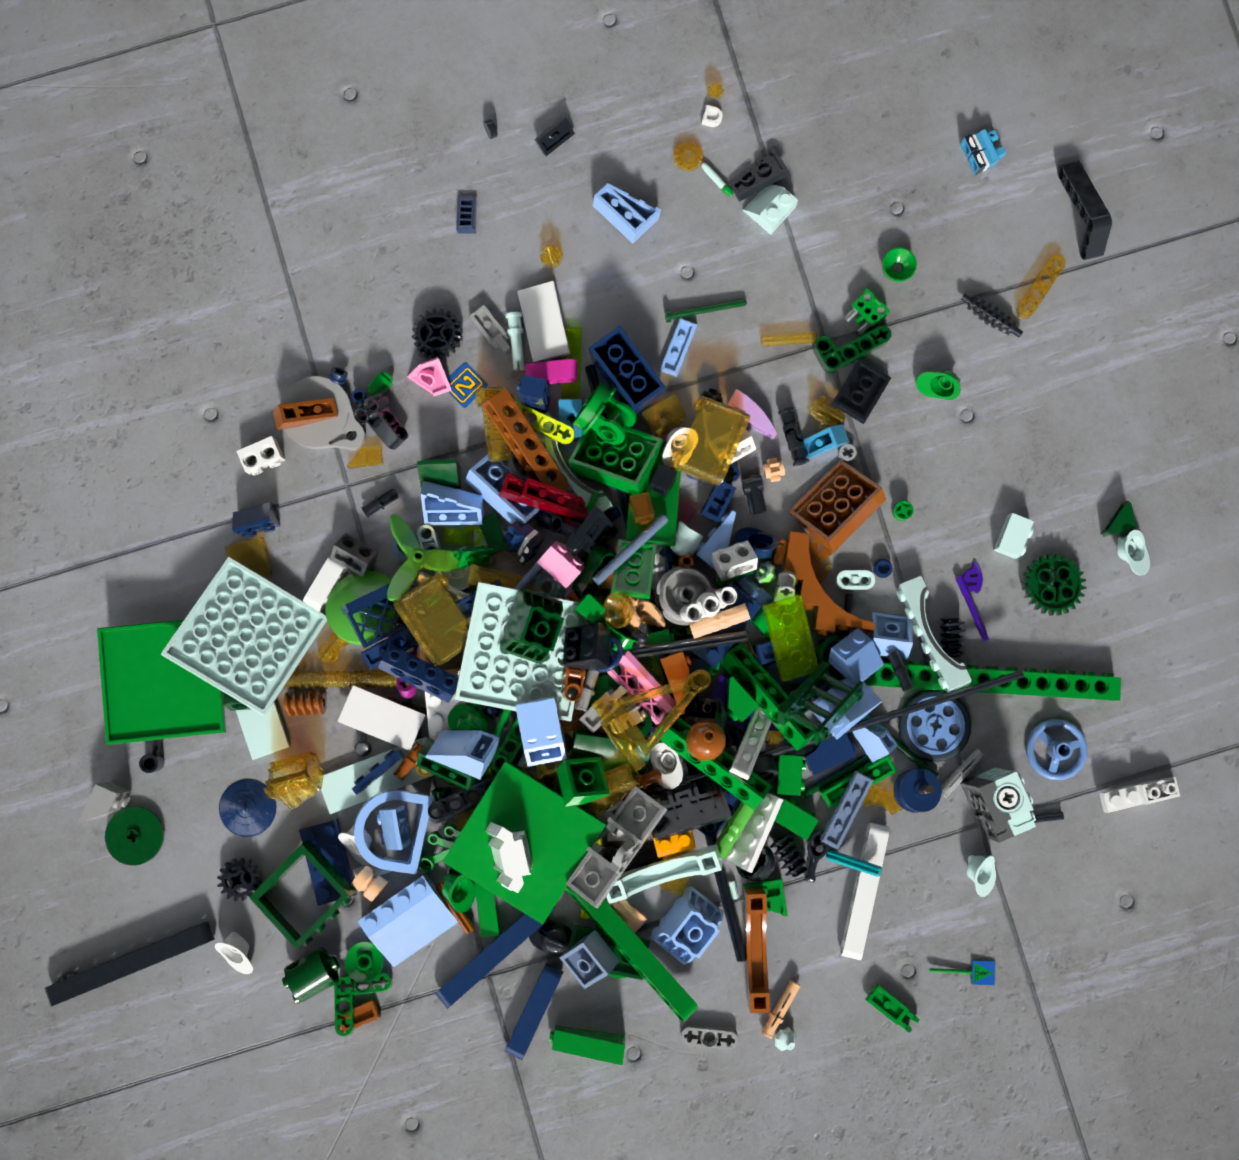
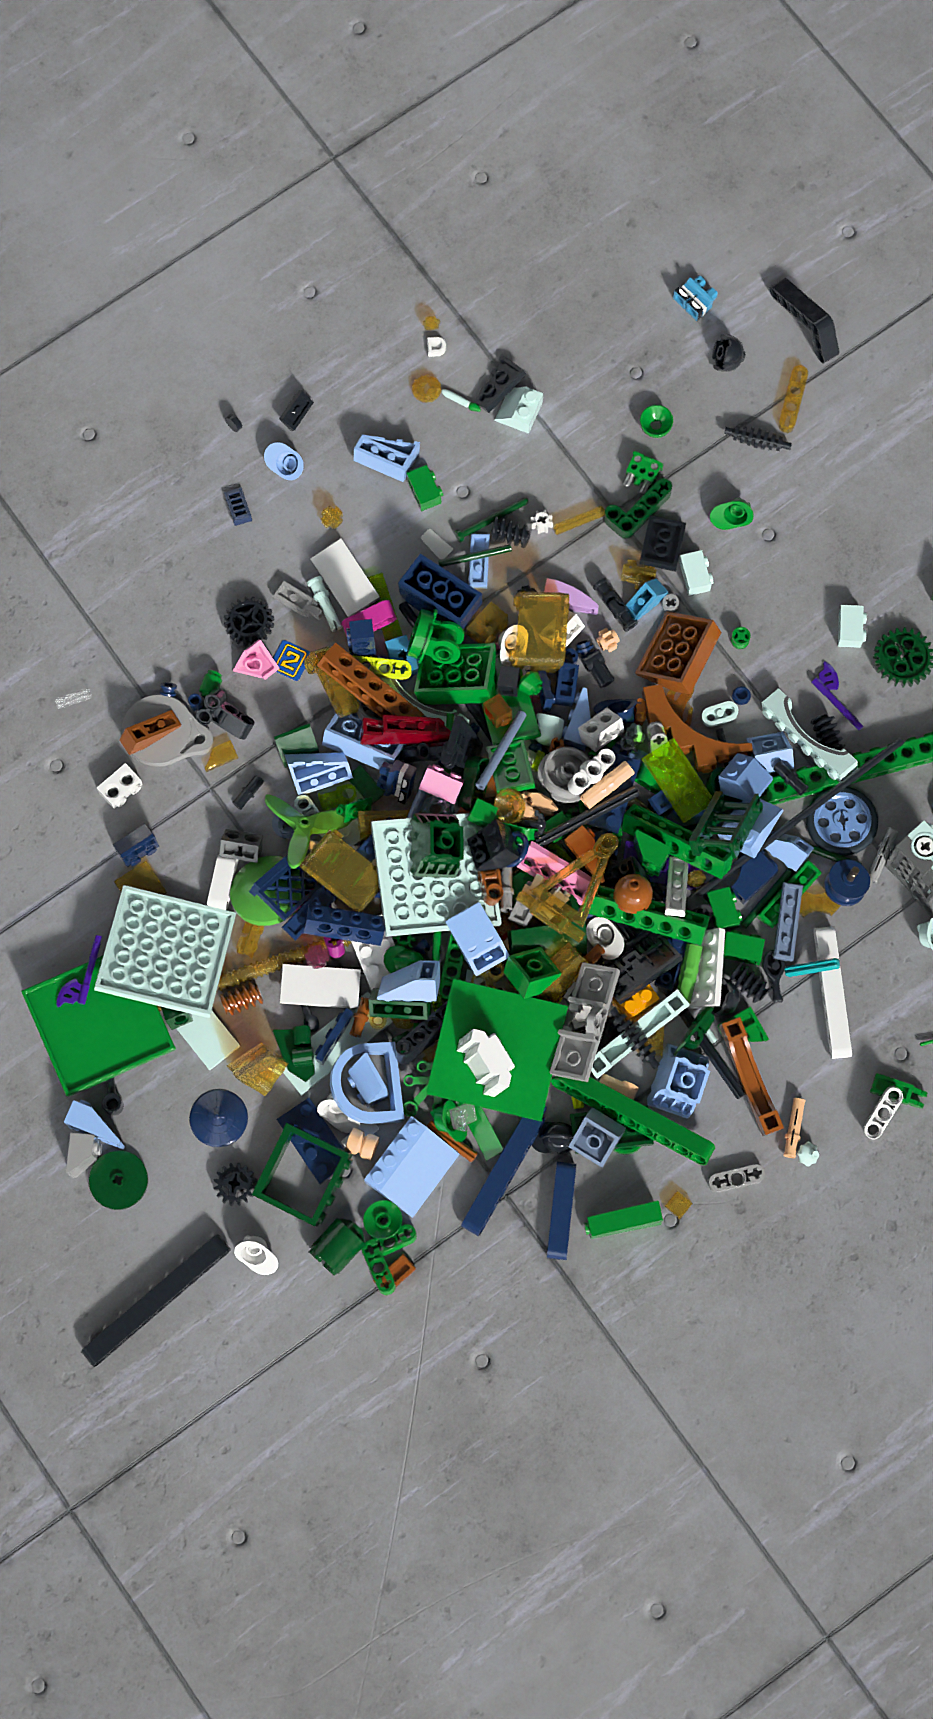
camera: 20 degrees left, 10 degrees down
(125, 779) = (85, 1120): none -> light blue slope
(156, 646) = (84, 988): none -> dark purple piece
(246, 353) = (73, 698): none -> clear axle
(339, 772) = (297, 1050): none -> dark green panel
(386, 690) = (317, 957): none -> clear pink gear
(470, 891) = (462, 1116): none -> clear bracket
(524, 184) = (283, 461): none -> light blue piece
(643, 316) = (436, 544): none -> white sticker
(645, 1043) = (678, 1205): none -> clear yellow tile
(650, 256) = (424, 488): none -> green brick
(658, 878) = (639, 1044): none -> black piece
(661, 570) = (536, 760): none -> clear neon green tile
(675, 342) = (474, 556): none -> dark green bar
(683, 490) = (530, 683): none -> green cone
(695, 496) = (546, 697): none -> dark blue plate
(718, 331) = (511, 533): none -> black piece
(728, 881) = (699, 1026): none -> dark green panel
(748, 333) = (540, 527): none -> white gear
(748, 469) = (584, 647): none -> dark blue plate
(752, 586) = (634, 743): none -> black gear
(868, 1035) = (882, 1122): none -> white beam
(882, 431) = (695, 572): none -> light aqua brick
(993, 219) = (728, 353): none -> black cylinder

